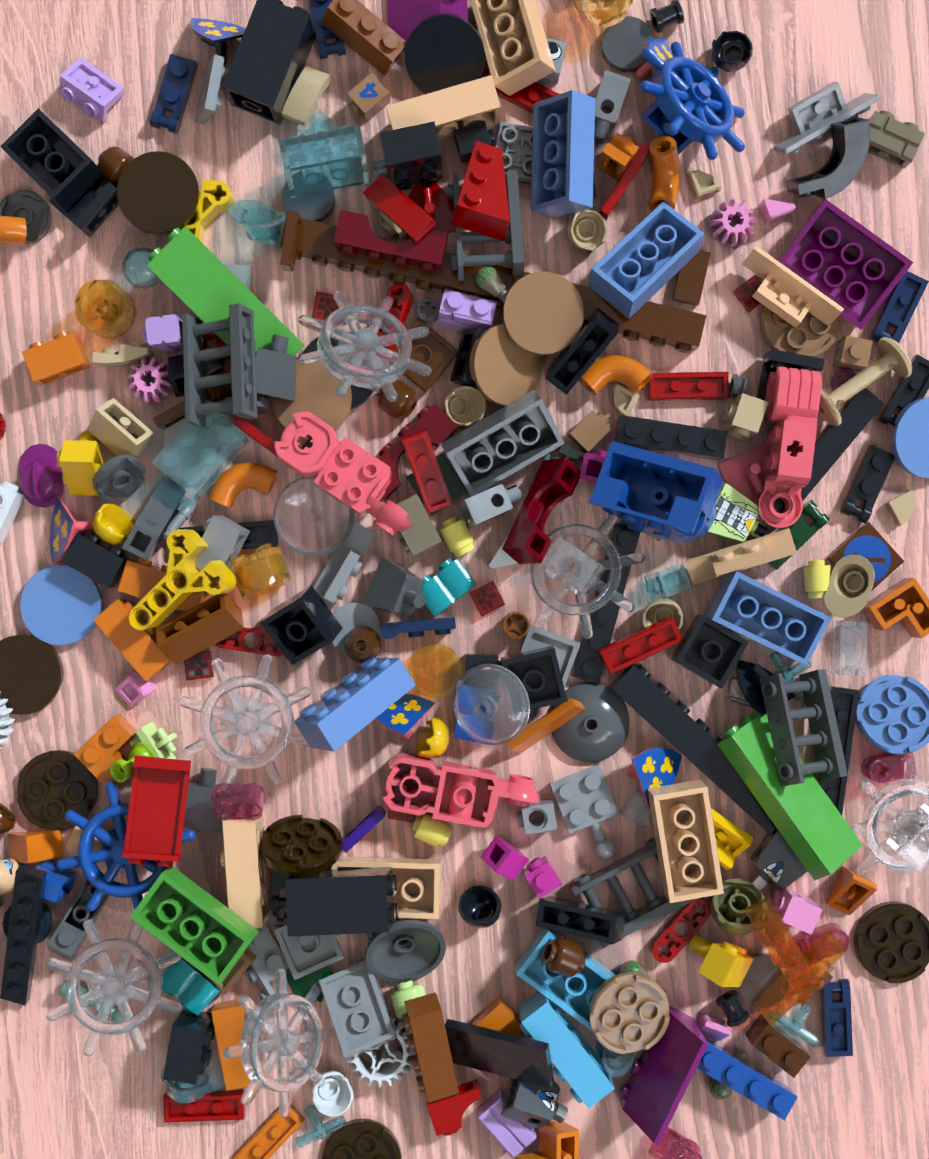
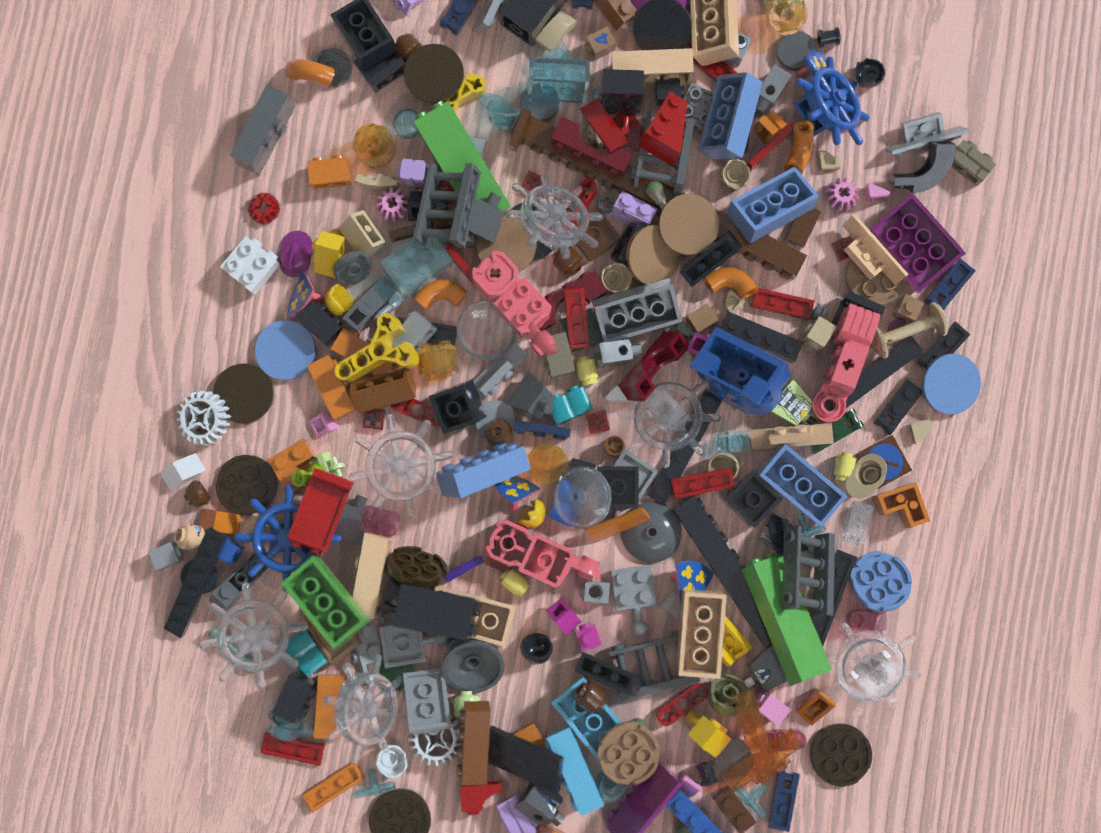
camera: 15 degrees right, 5 degrees down
(746, 472) = (810, 376): coral shield -> none

